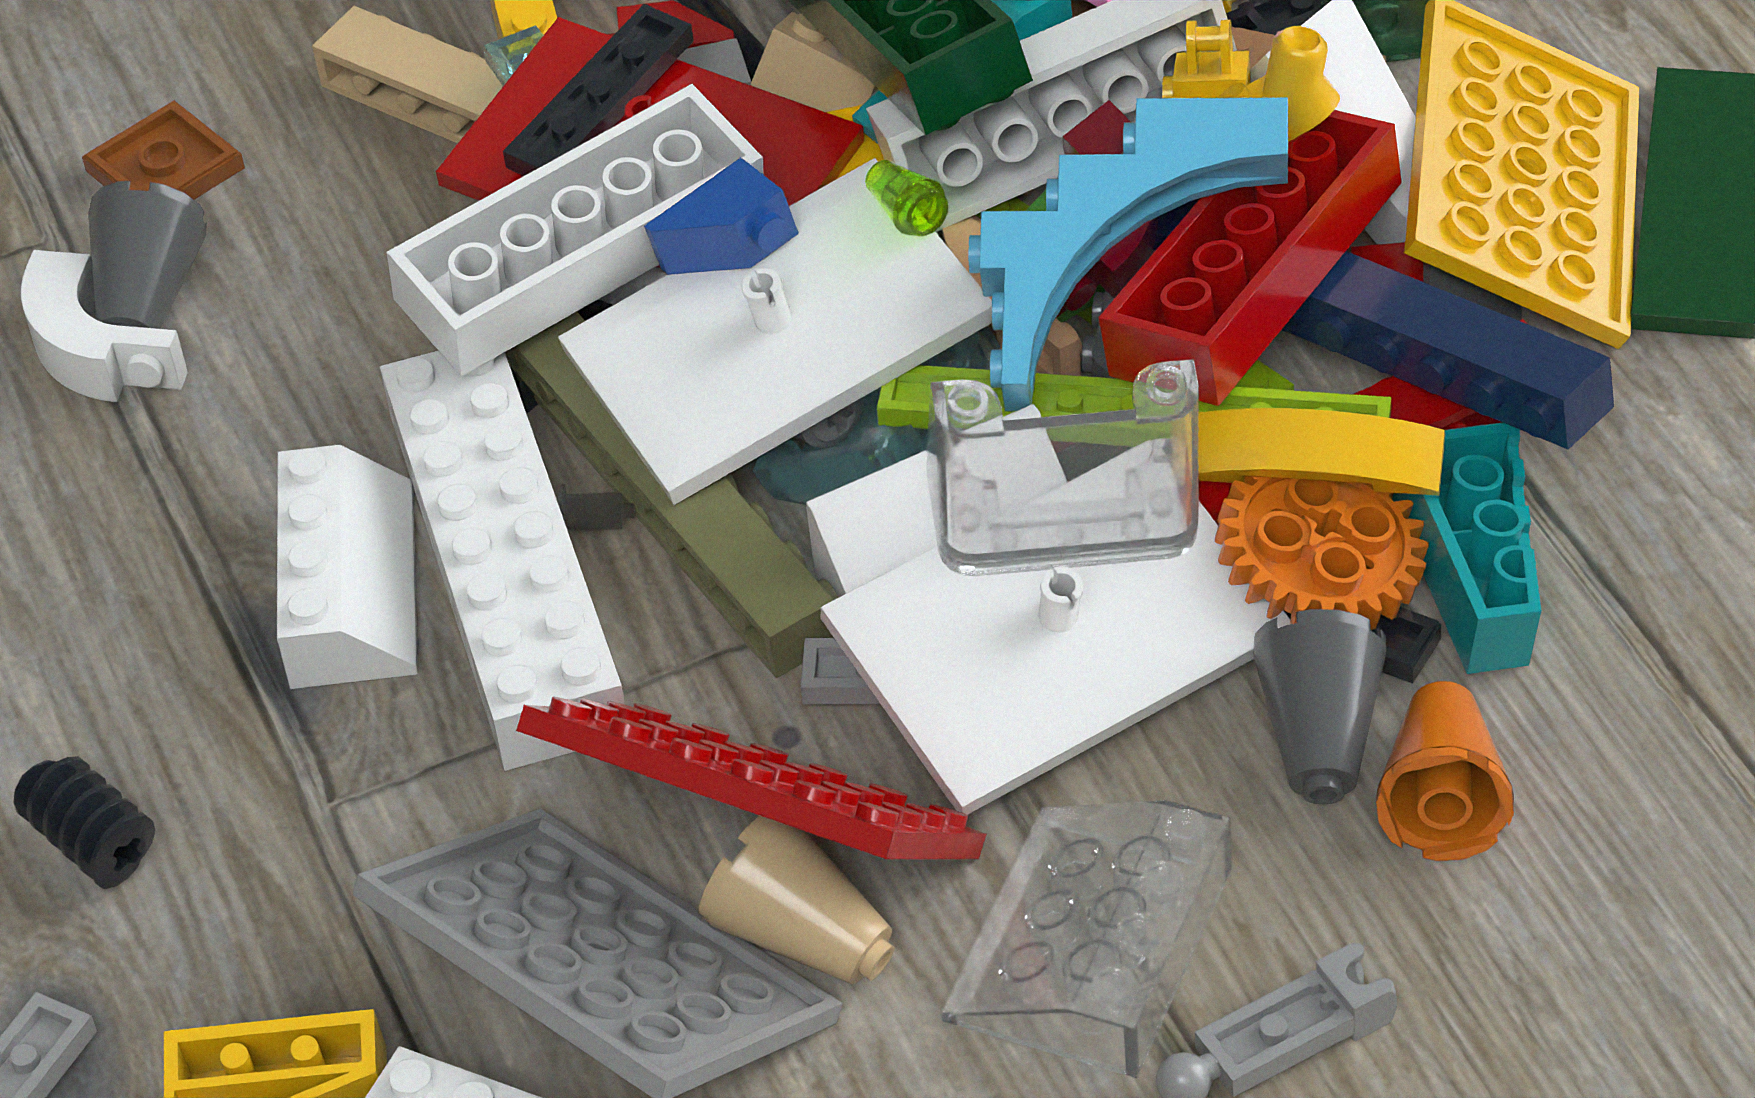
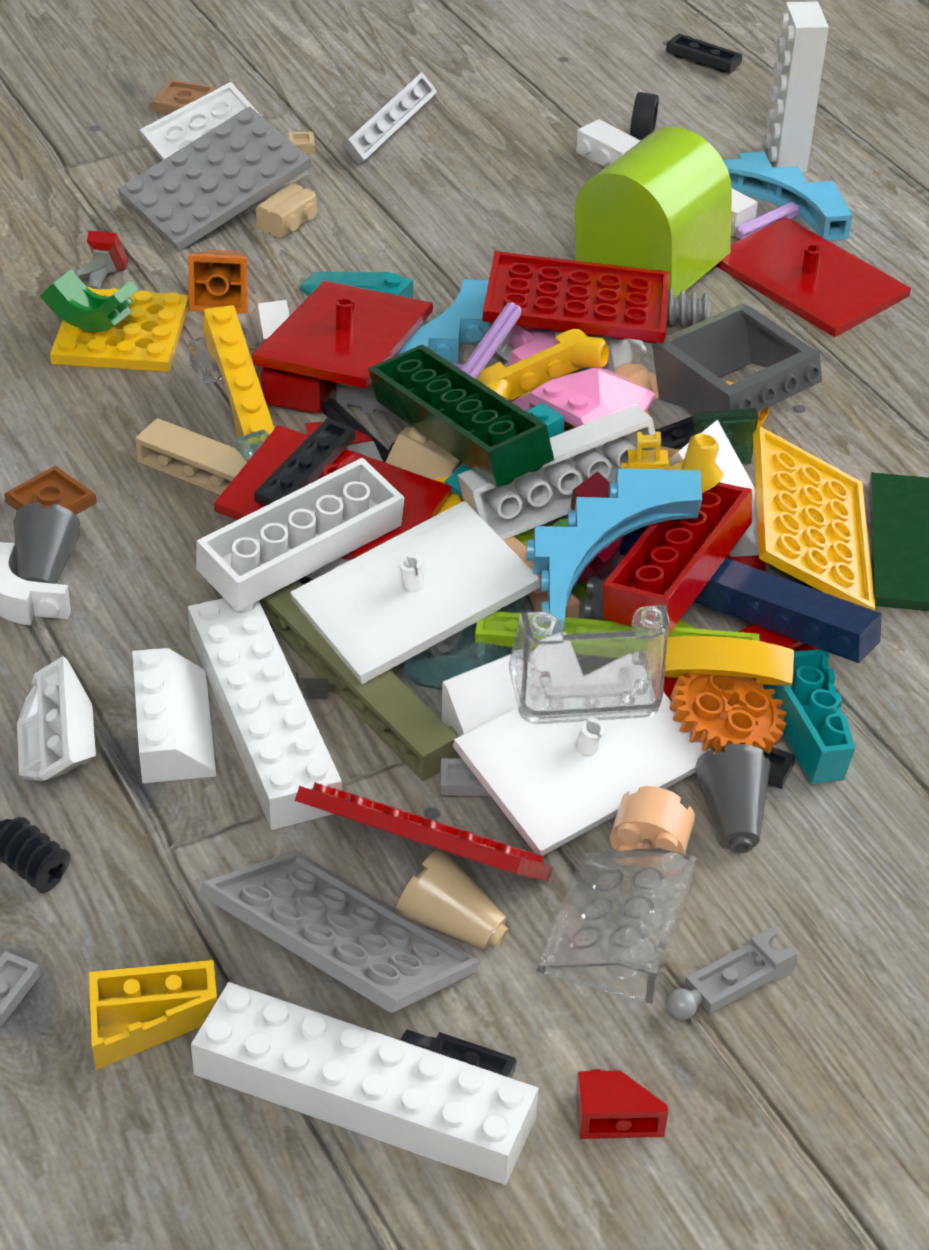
camera: 10 degrees left, 5 degrees down
(143, 587) = (55, 724): none -> white wedge
(723, 223) = (384, 532): blue slope -> none
(908, 198) = (487, 520): clear neon green cone -> none
(1161, 752) = (652, 821): none -> light nougat brick
(1444, 778) = (810, 839): orange cone -> none

